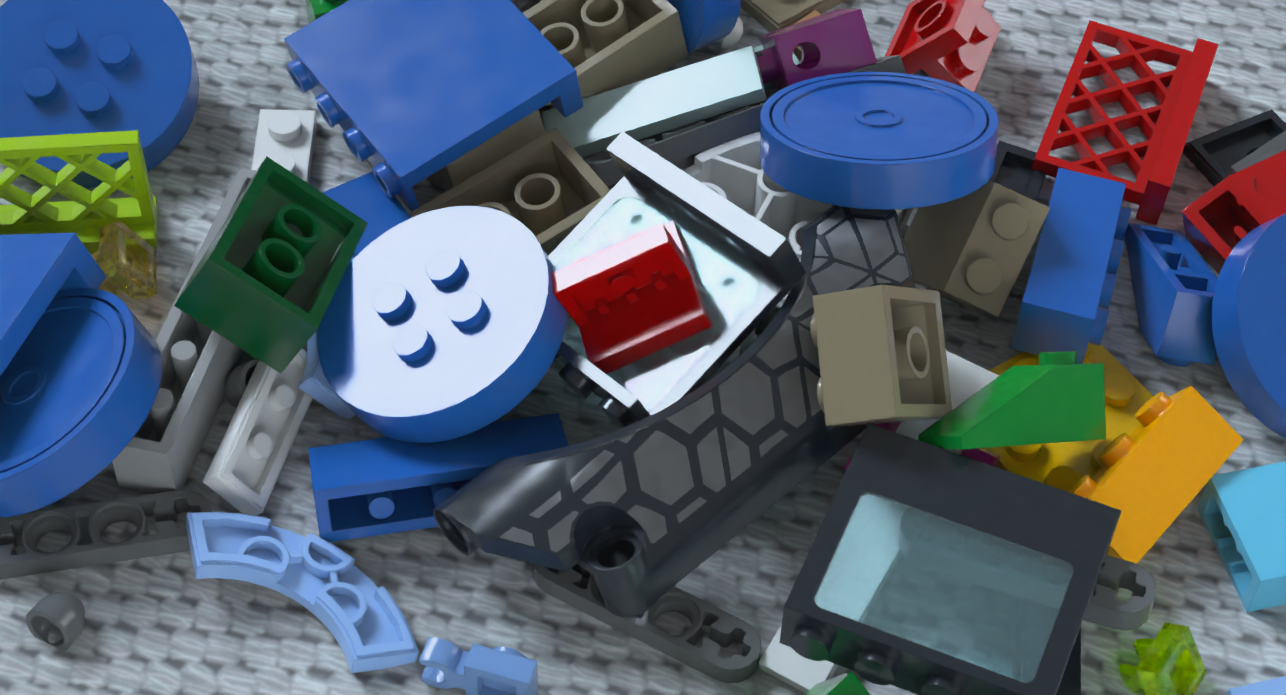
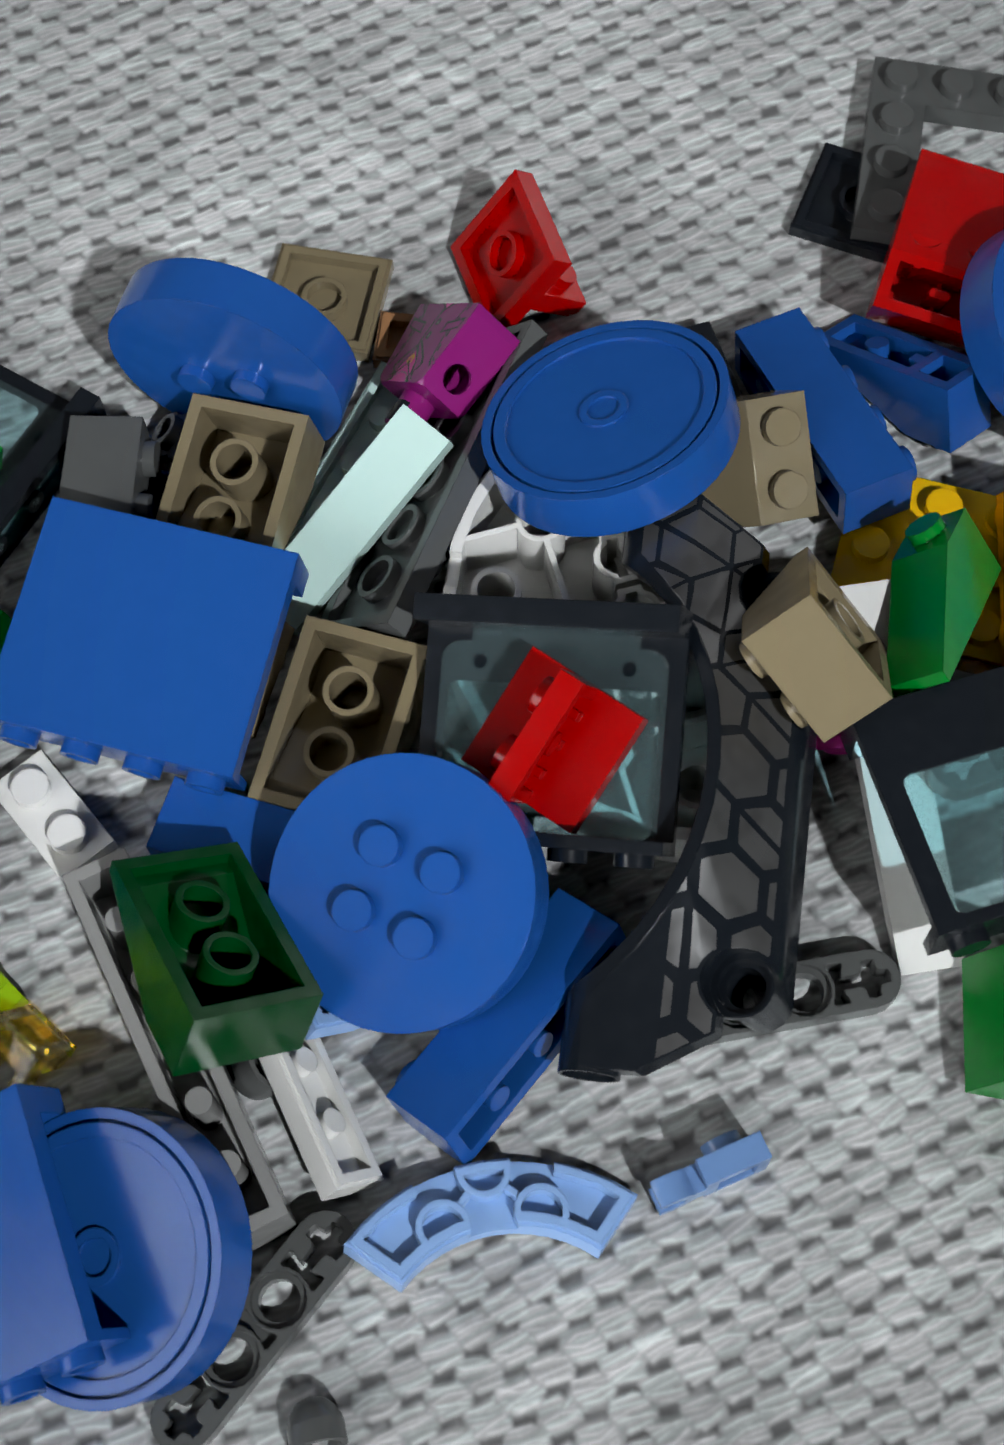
camera: 35 degrees left, 15 degrees up
(1173, 115) = (769, 205): red fence -> none

